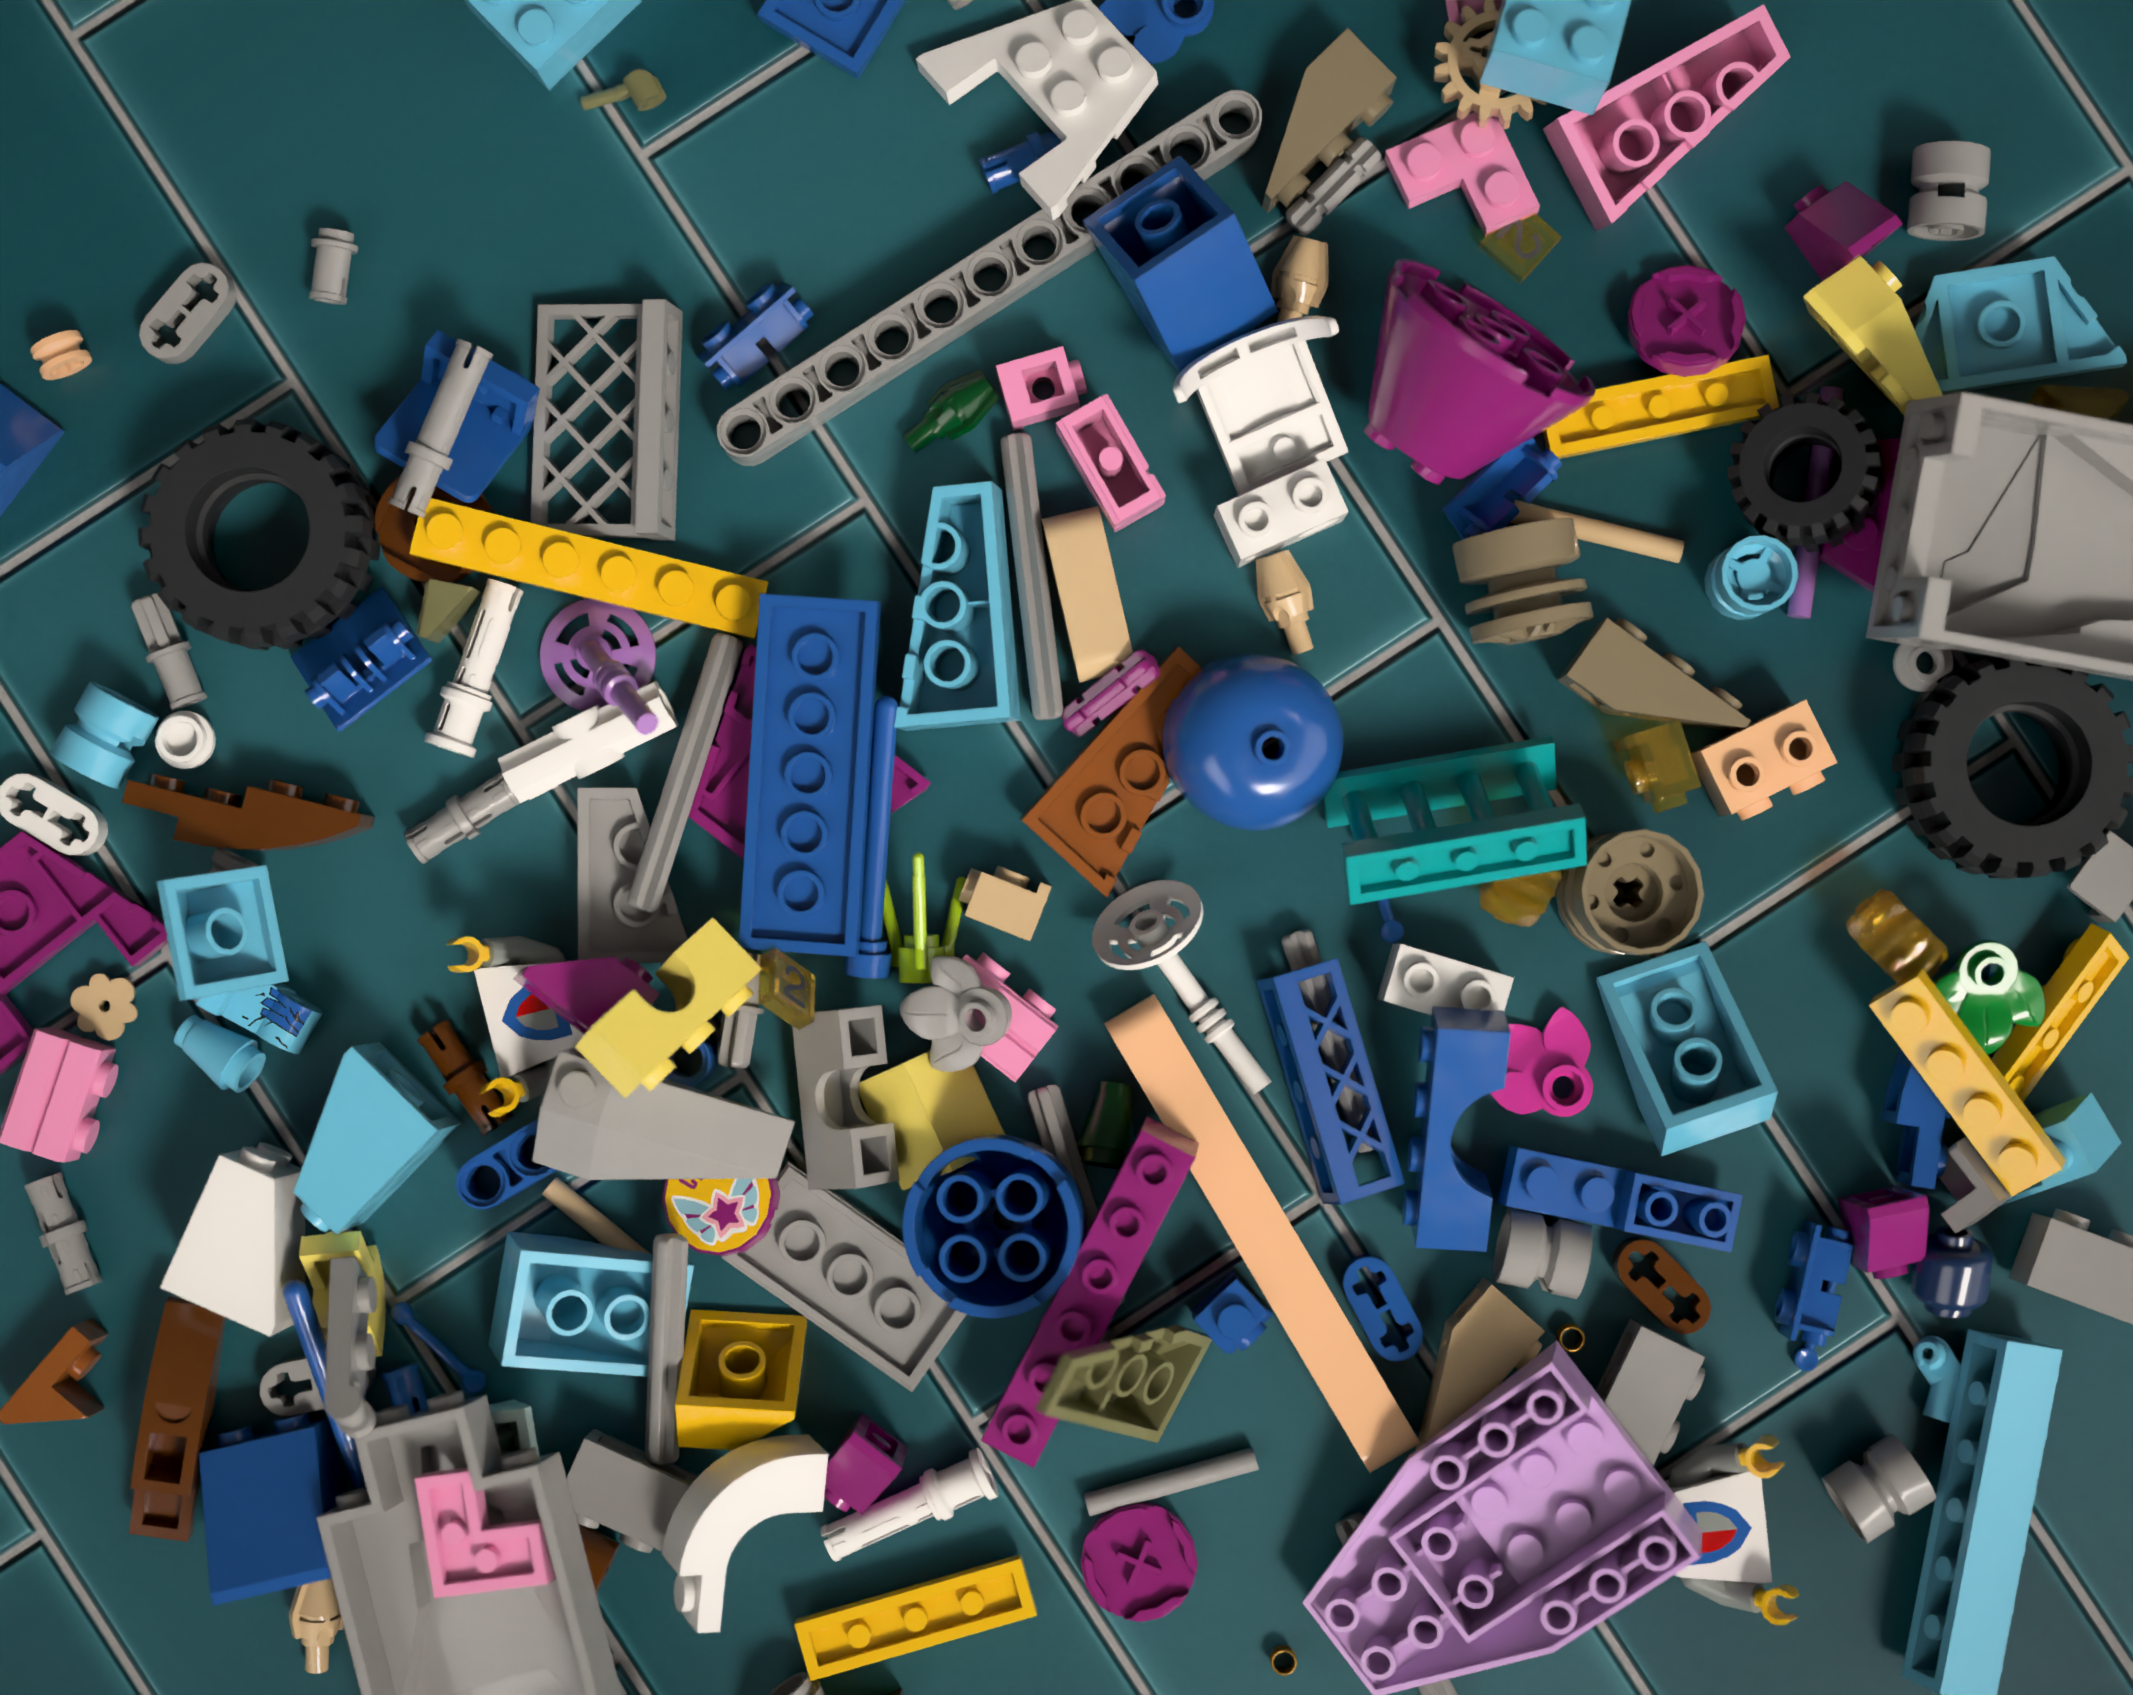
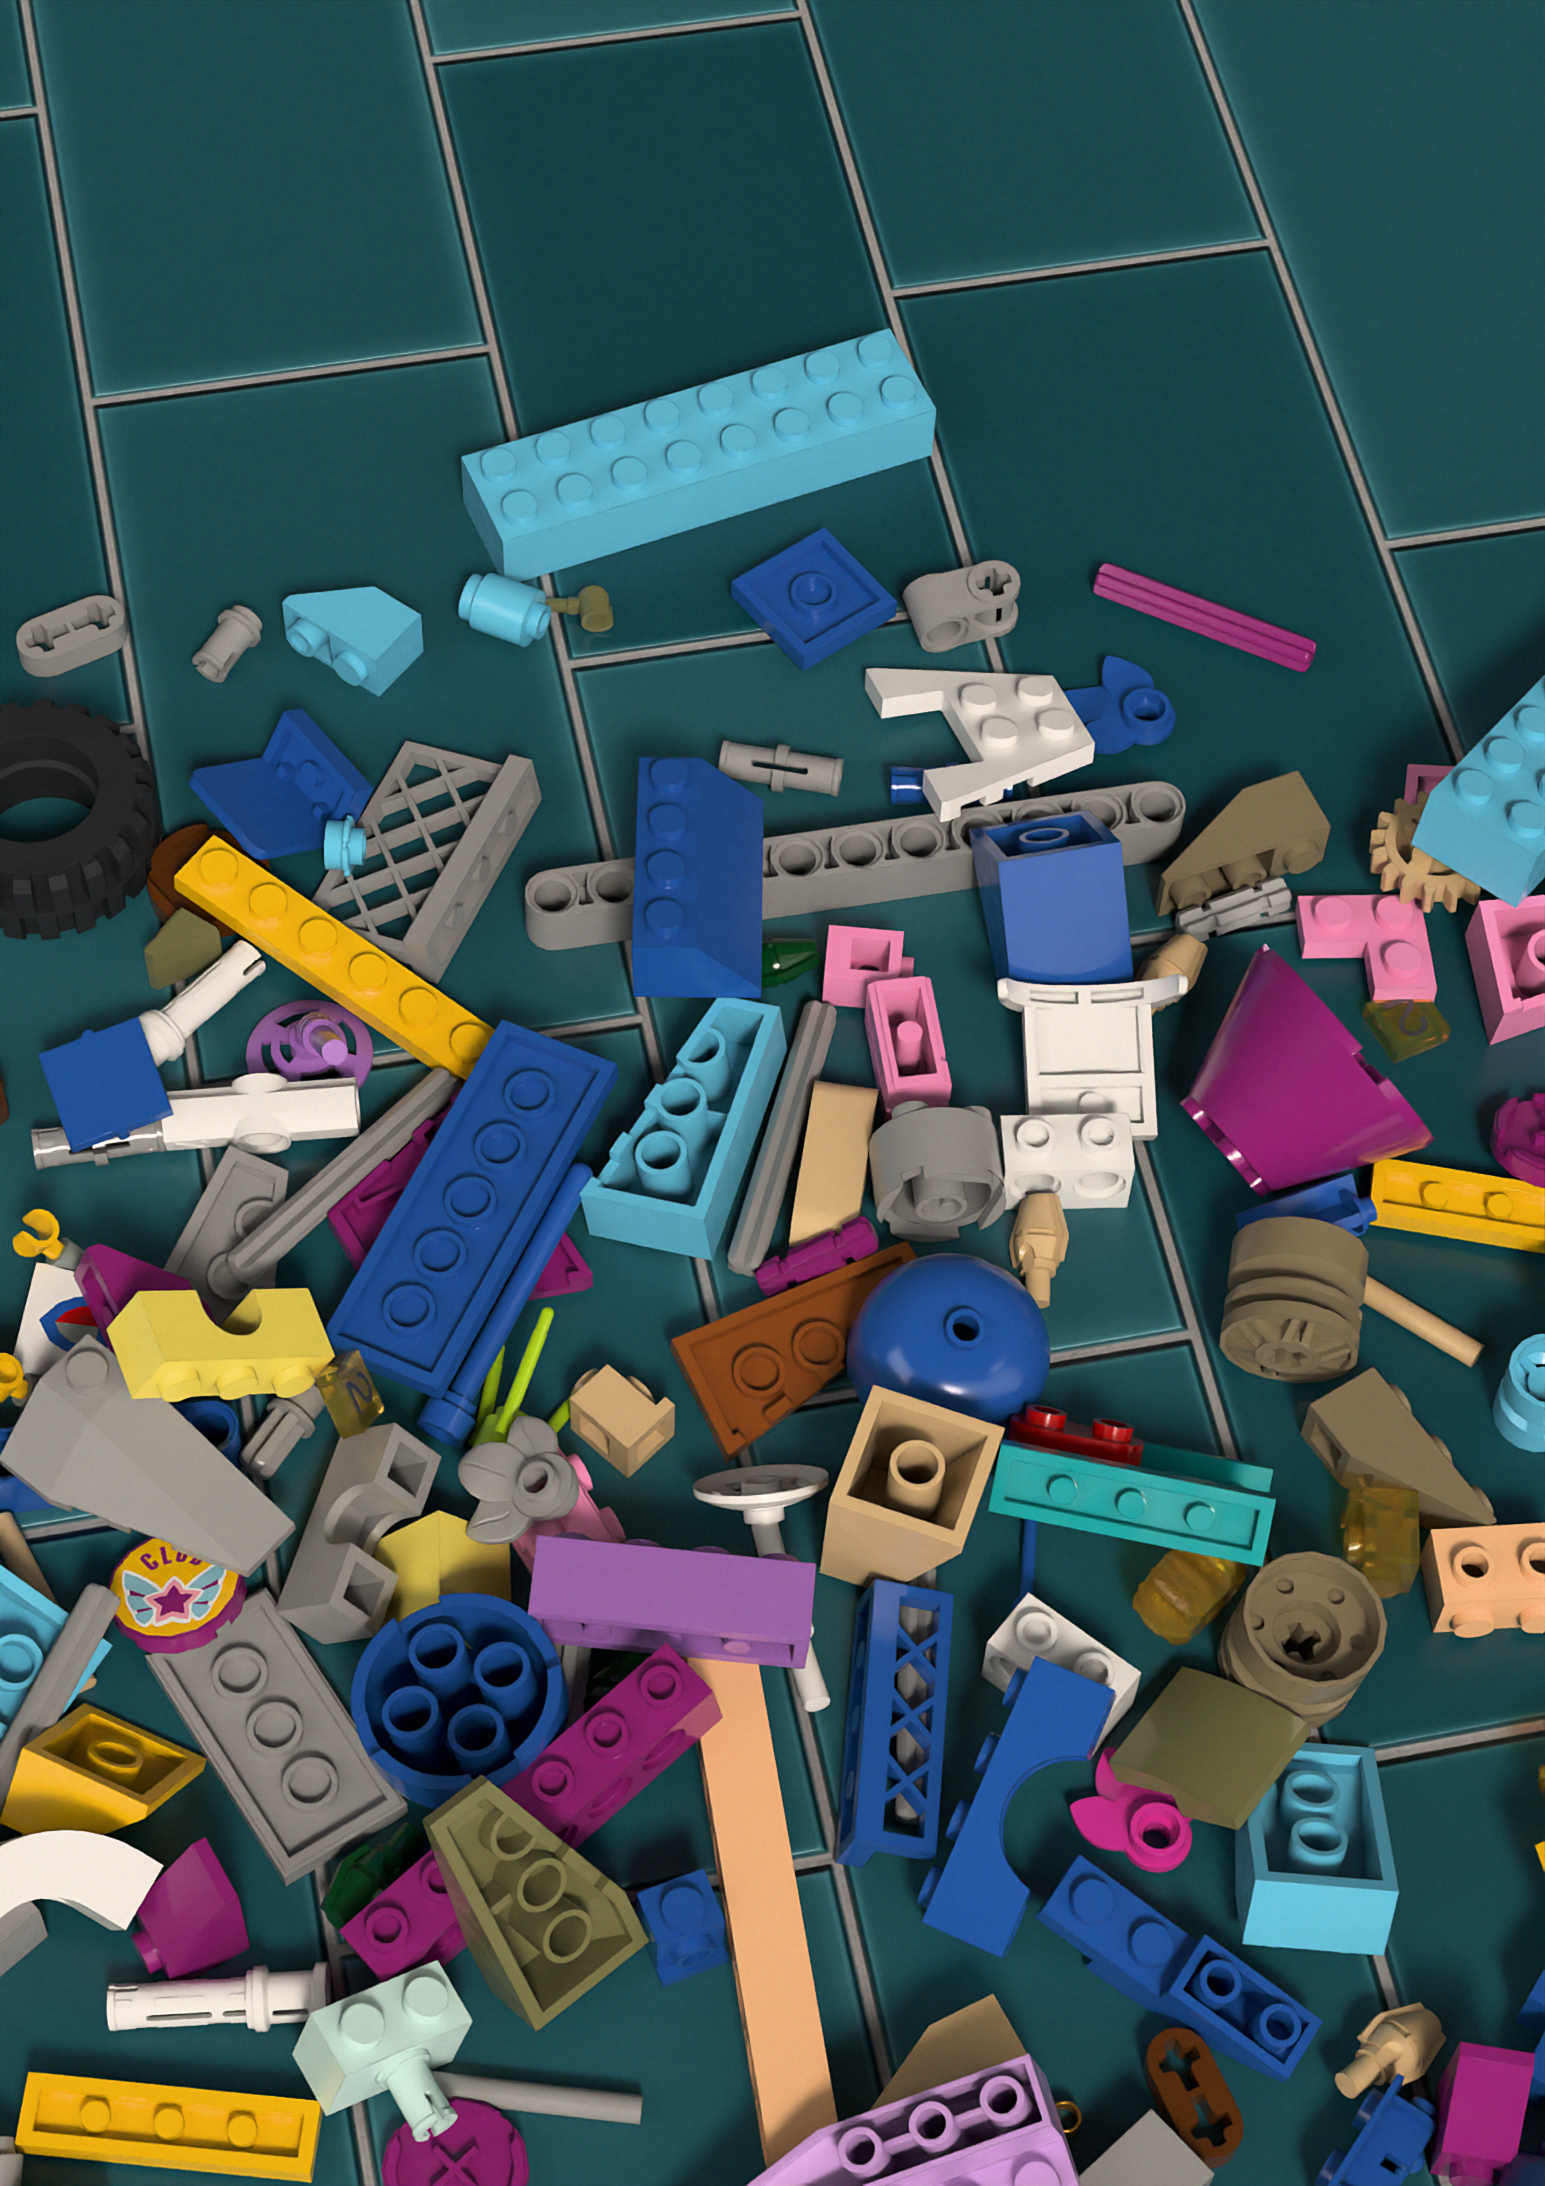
camera: 15 degrees right, 30 degrees down
(360, 660) = (100, 956): blue hinge -> none
(440, 428) = (241, 791): light grey pin -> none
(444, 210) = (356, 633): none -> medium azure slope
(448, 777) = (105, 1084): none -> blue piece
(537, 449) = (344, 845): none -> medium azure plate
(564, 127) = (504, 608): none -> medium azure brick
(768, 317) = (579, 836): blue hinge -> none
(869, 383) = (696, 883): none -> blue slope
(881, 197) = (823, 773): none -> light grey pin
(978, 1370) = (367, 1874): none -> dark green piece
(1054, 1506) = (387, 2042): none -> light aqua brick
(1125, 1073) = (694, 1600): none -> medium lavender brick
(1180, 577) = (936, 1171): none -> light grey brick
(1281, 906) = (906, 1489): none -> tan slope
(1389, 792) = (1049, 1429): none -> red plate
(1394, 1301) = (872, 1994): blue beam -> none
(1552, 1254) = (1065, 1994): light grey wheel -> none
(1584, 1007) = (1210, 1747): none -> olive slope
(1800, 1190) = (1393, 2044): none -> tan piece

